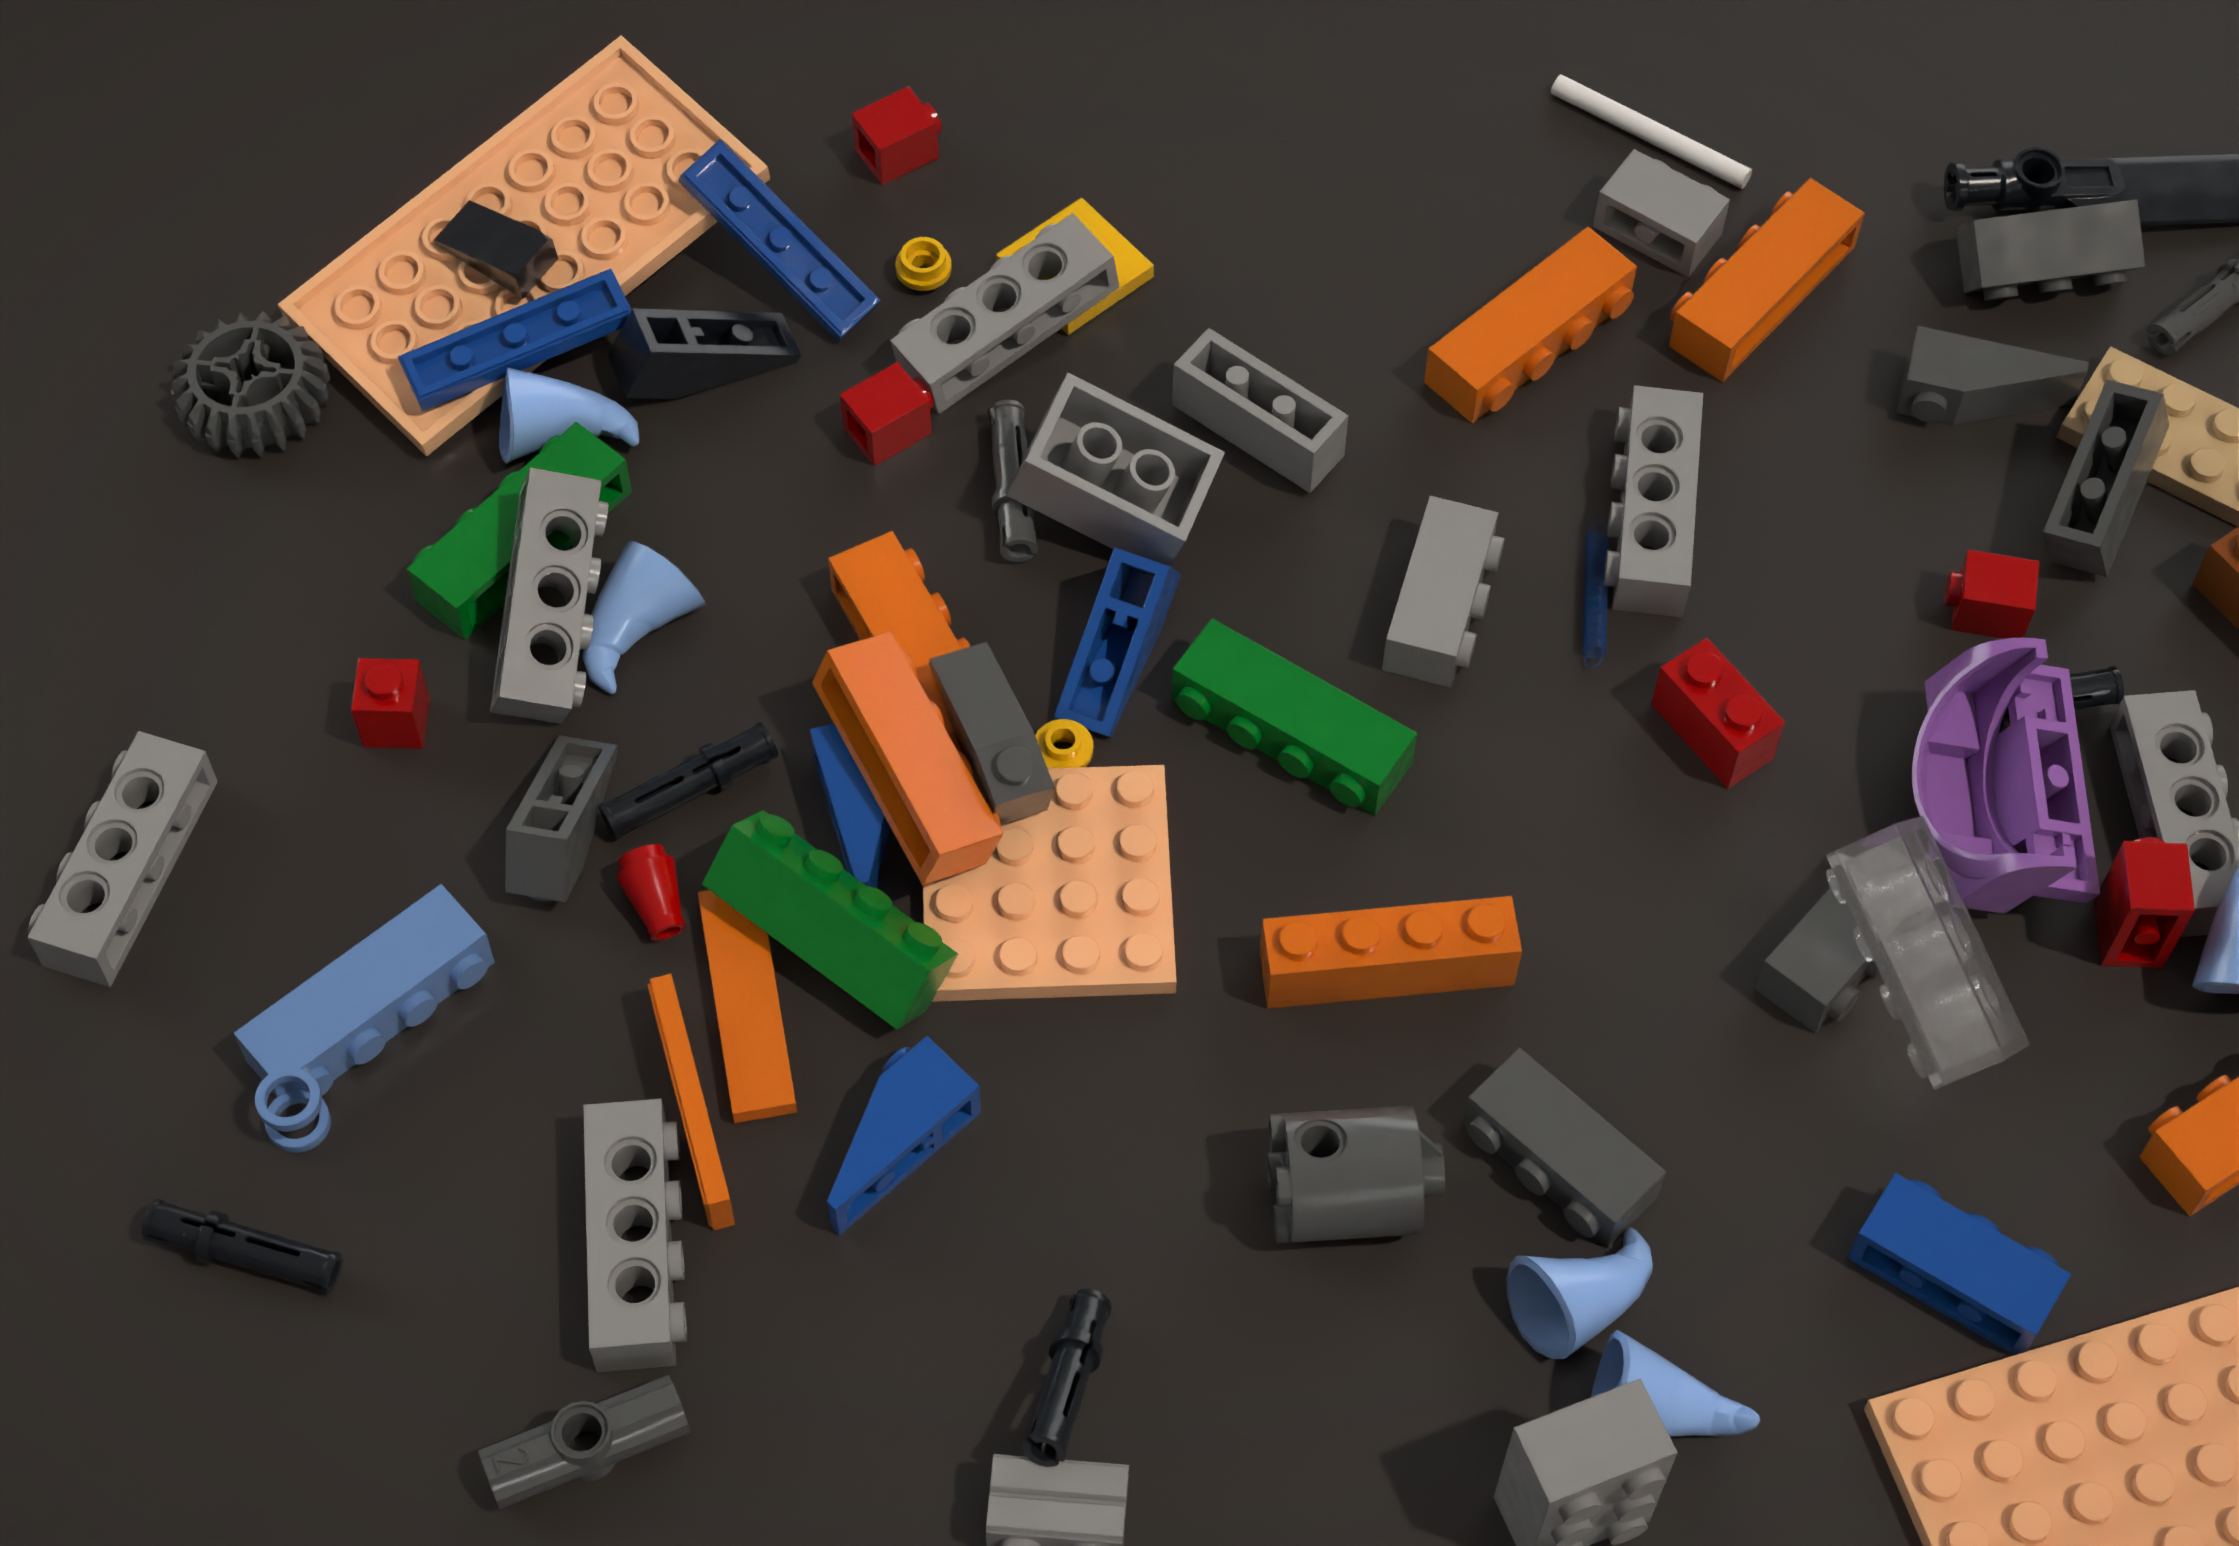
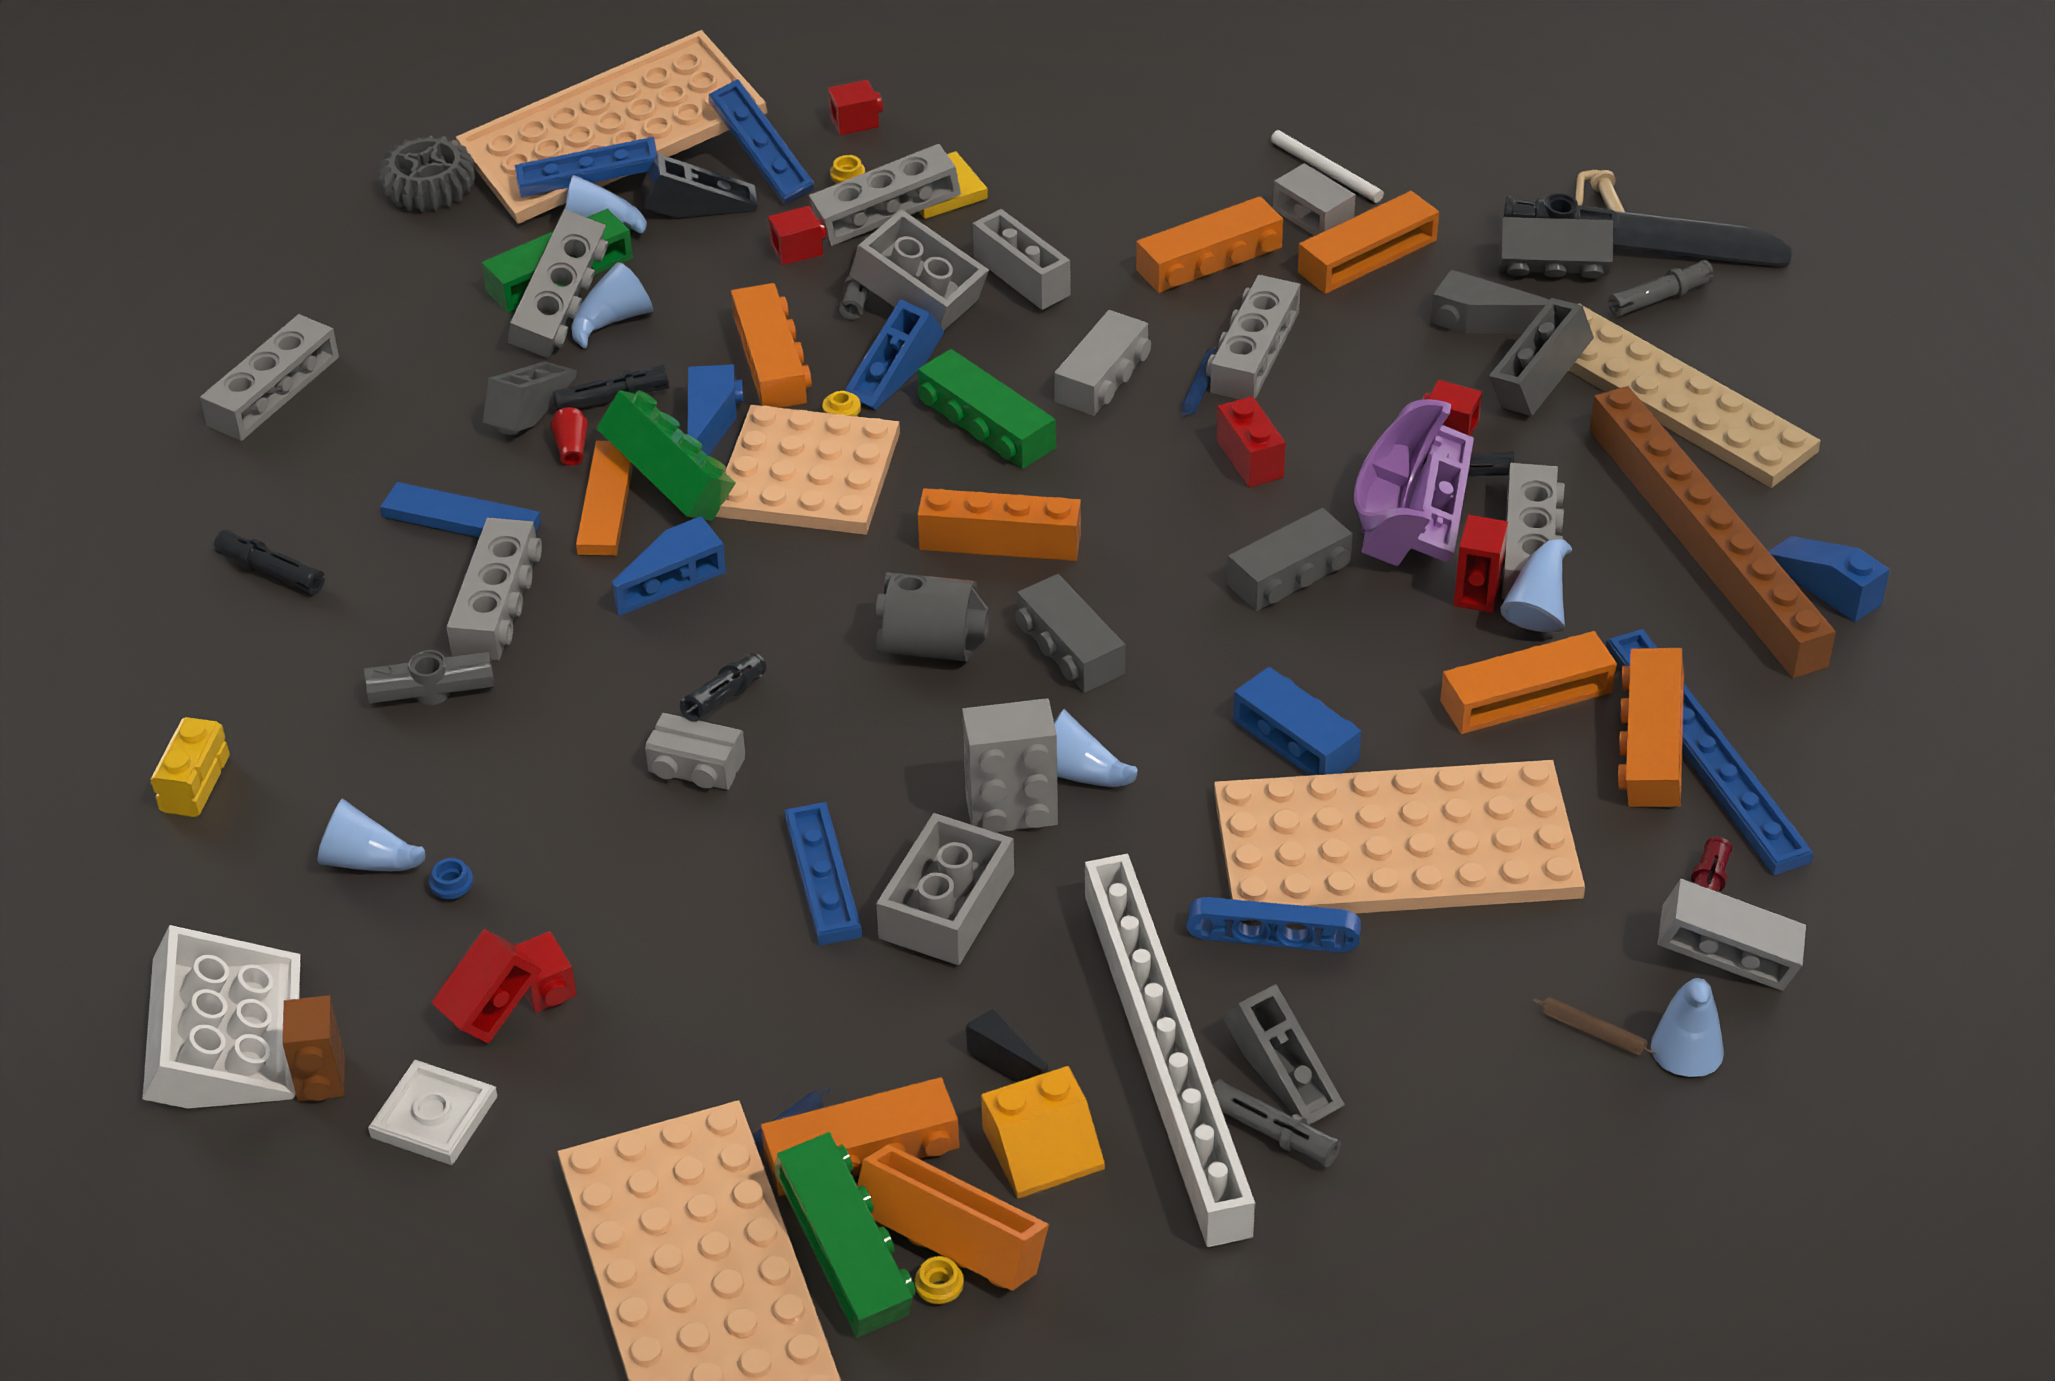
camera: 15 degrees right, 15 degrees down
(356, 1007) = (377, 462): medium blue hinge -> none
(390, 703) = (450, 327): red brick -> none
(498, 247) = (593, 121): black slope -> none
(515, 1078) = (448, 510): none -> blue tile
(691, 1103) = (553, 534): orange tile -> none
(907, 757) = (738, 381): orange brick -> none
(993, 733) = (794, 383): dark grey slope -> none
(1574, 1299) = (1074, 698): light blue hat -> none
(1926, 952) = (1329, 560): clear slope -> none
(2069, 100) = (1600, 182): none -> tan piece

